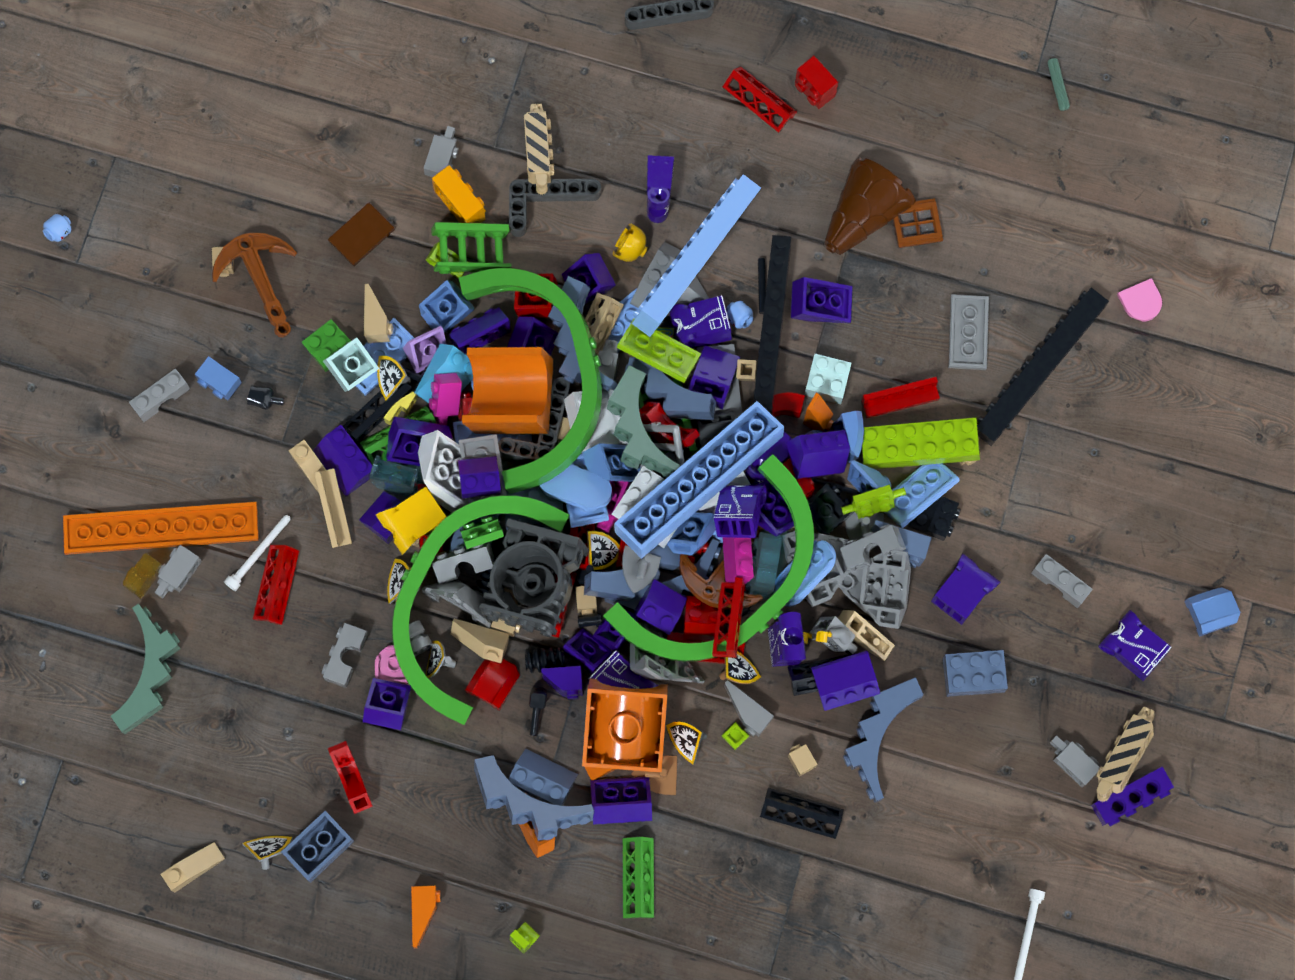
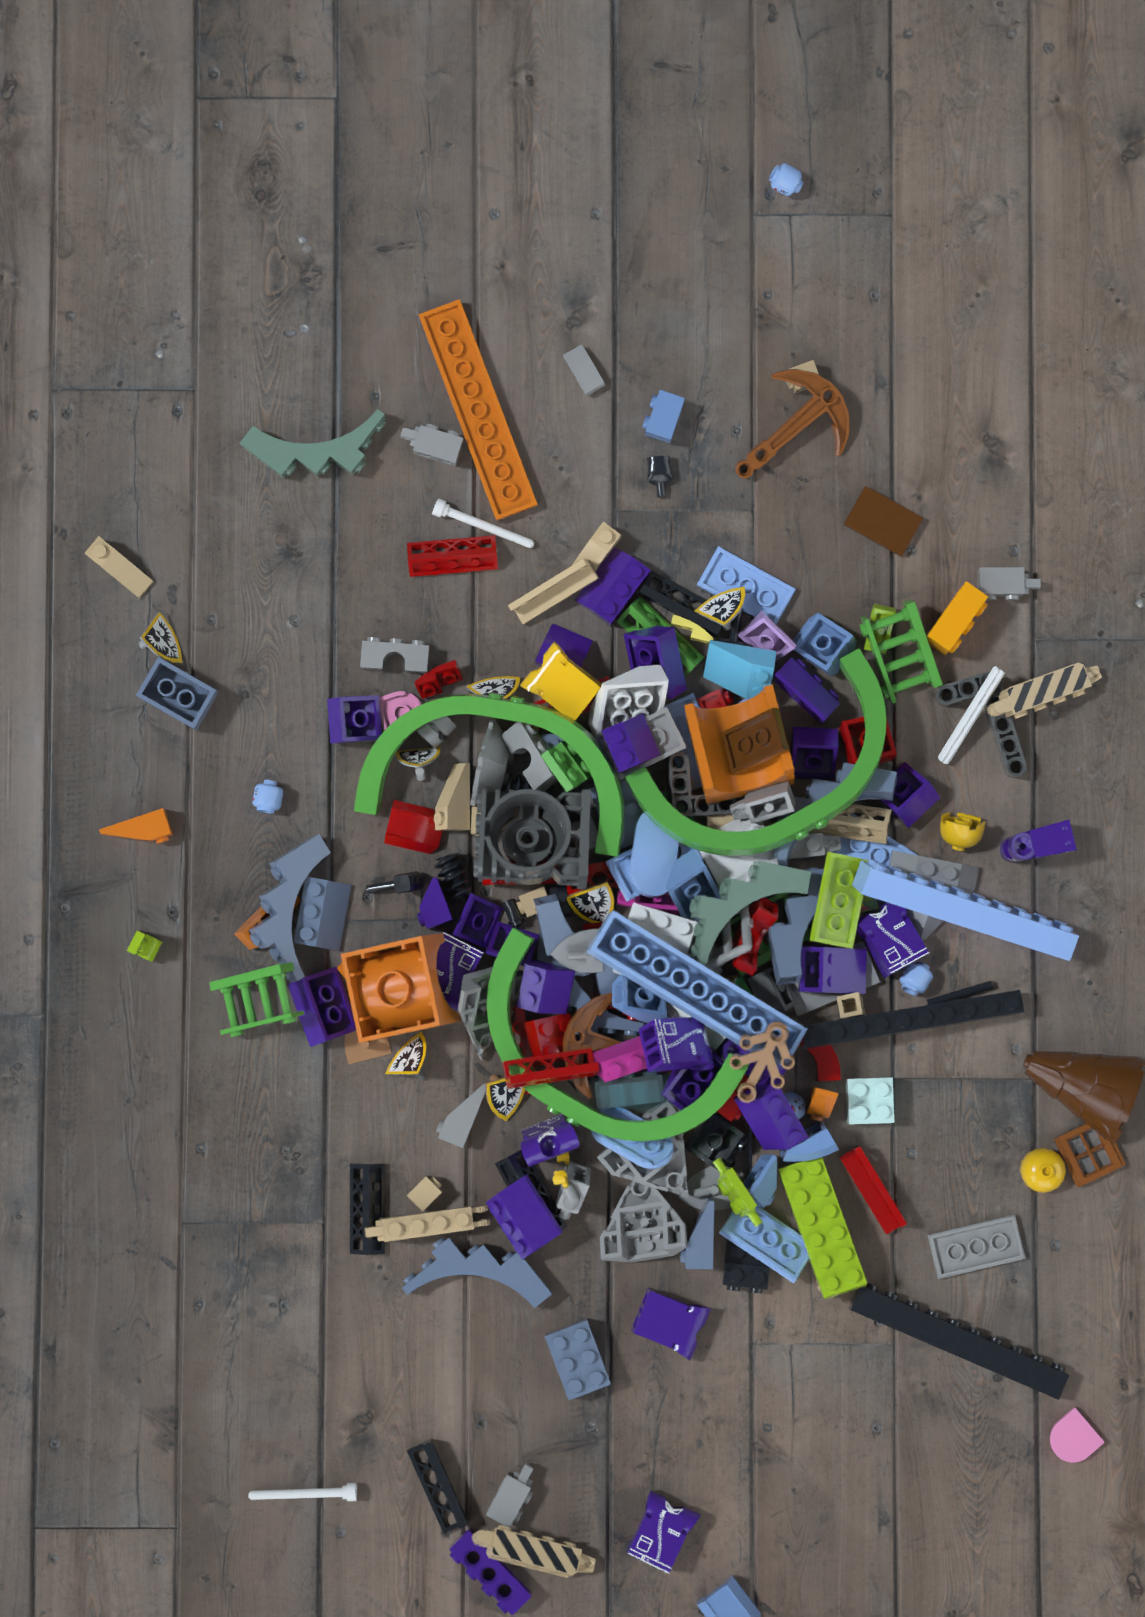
camera: 75 degrees right, 10 degrees up
(139, 577) = (414, 406): clear yellow brick -> none
(157, 432) = (583, 370): none -> light grey slope
(168, 387) = (627, 357): light grey arch -> none
(325, 342) = (741, 527): bright green plate -> none
(350, 777) = (261, 706): red arch -> none
(351, 364) = (721, 559): light aqua brick -> none
(373, 621) = (432, 681): none -> red slope
(376, 324) = (782, 571): tan slope -> none
(395, 477) = (609, 648): clear light blue piece -> none
(429, 795) = (267, 797): none -> light blue head
(445, 396) = (716, 676): dark pink hinge -> none
(509, 374) = (755, 741): none -> reddish brown tile
(540, 209) = (971, 715): none -> white axle
(562, 384) = (765, 803): none -> light grey hinge
(581, 858) = (243, 982): none -> bright green fence
(642, 877) = (245, 1054): bright green fence -> none
(735, 736) = (431, 1111): lime tile -> none
(770, 439) = (763, 1058): none -> medium nougat plant
(821, 301) = (960, 1067): dark purple slope -> none
(828, 764) = (426, 1223): none -> tan hinge
(857, 552) = (668, 1191): light grey arch -> none
(866, 634) = (586, 1224): tan slope -> none
(921, 262) = (1042, 1170): none -> yellow cylinder
(1043, 814) = (445, 1483): none -> black fence
(1053, 573) = (712, 1430): light grey arch -> none

